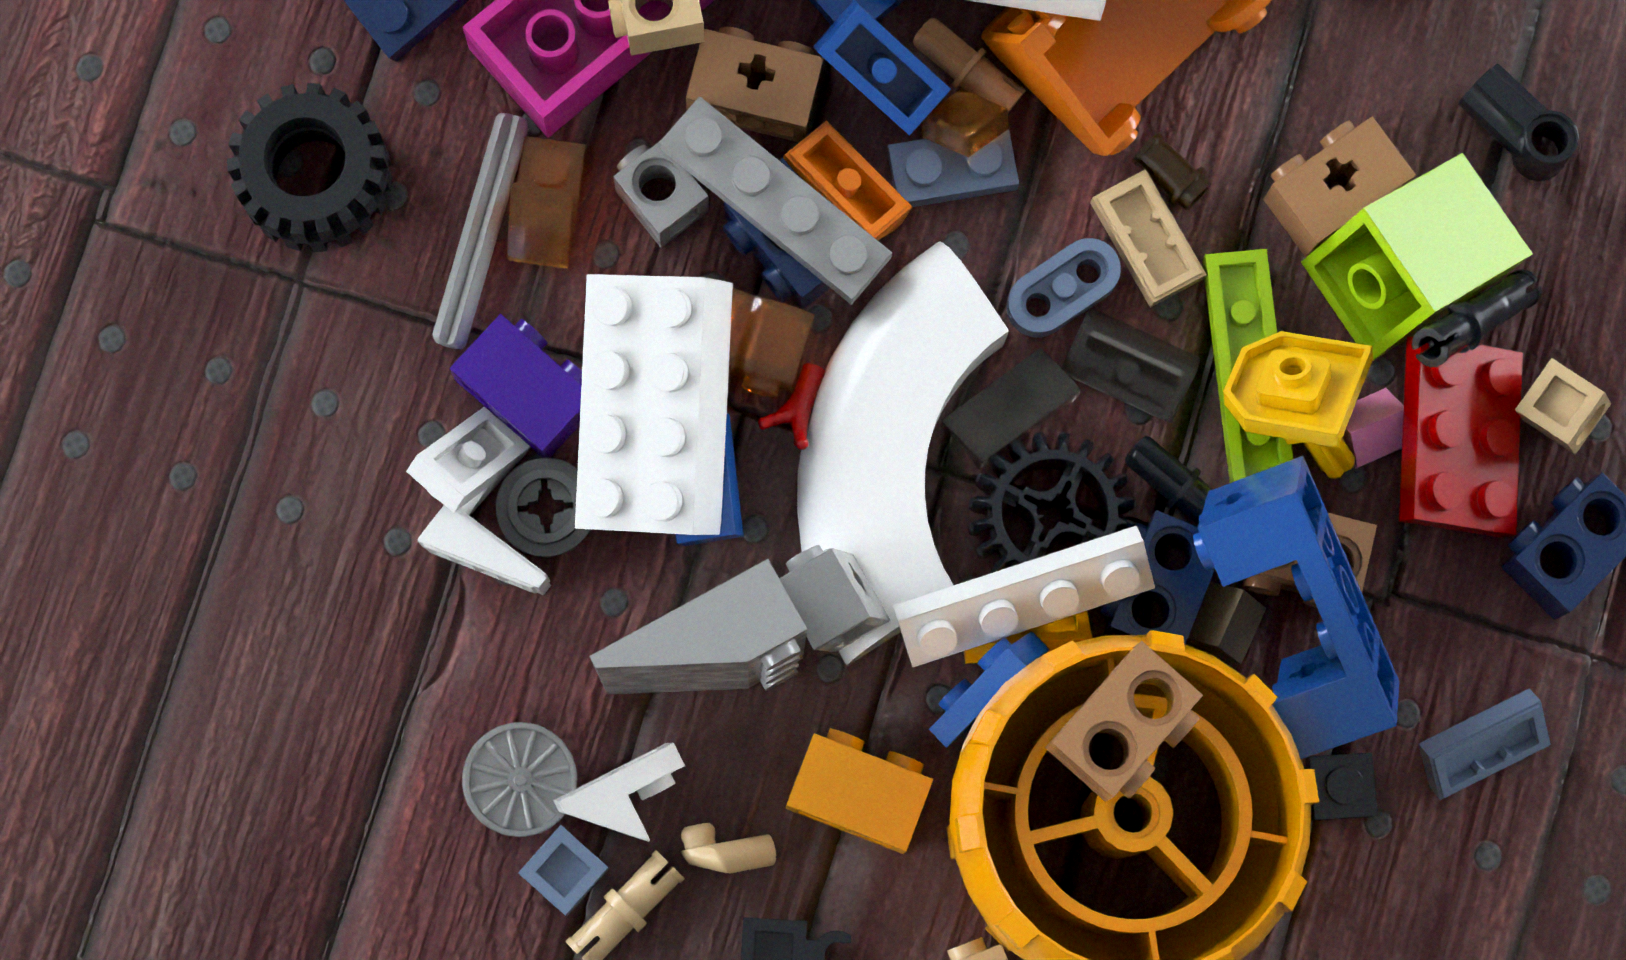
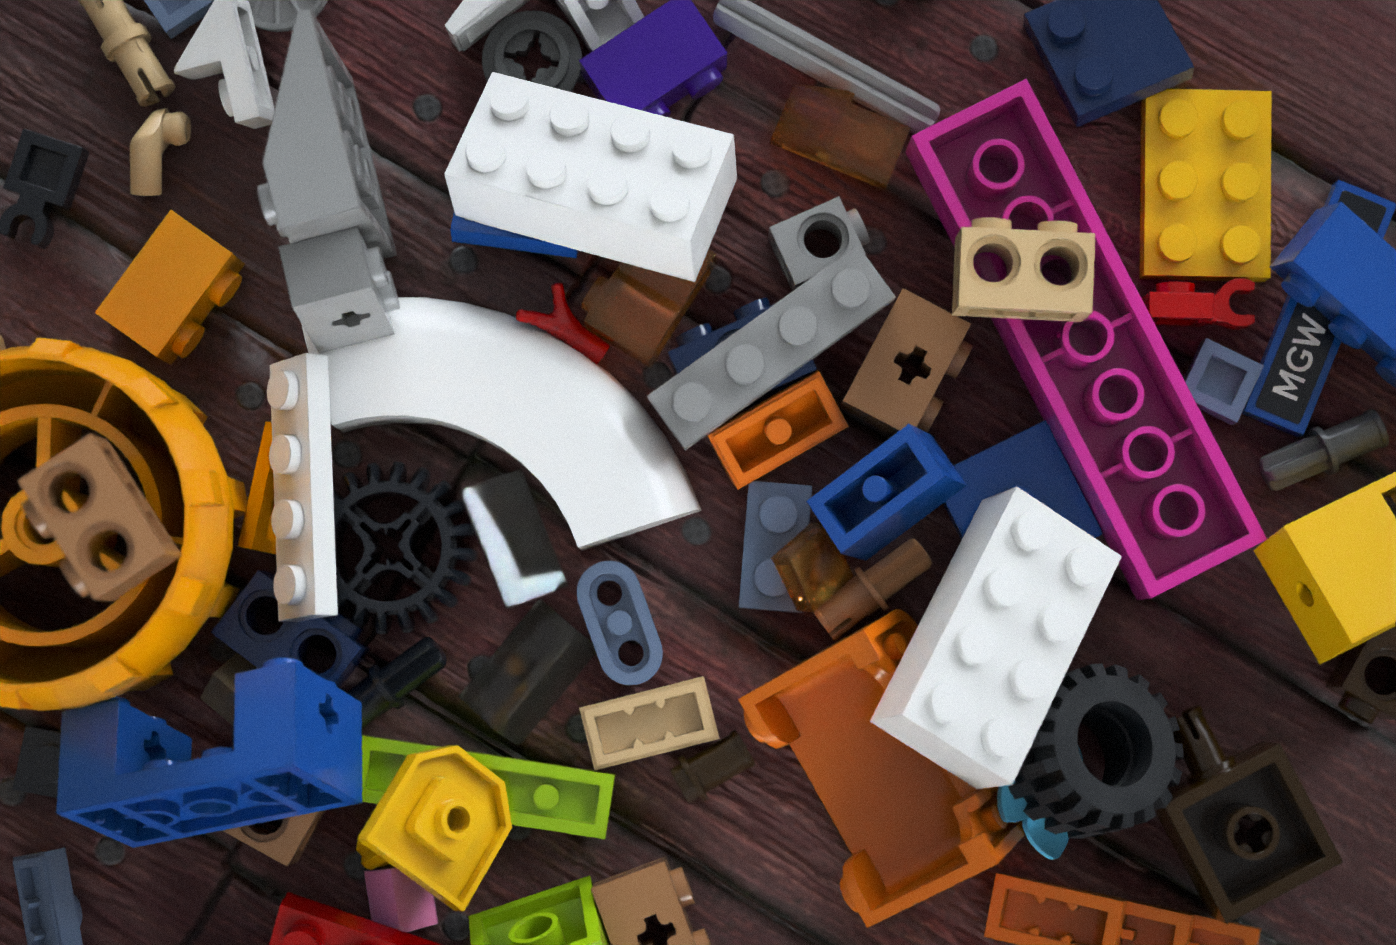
camera: 115 degrees right, 5 degrees up
(967, 700) = (239, 448): blue plate -> none

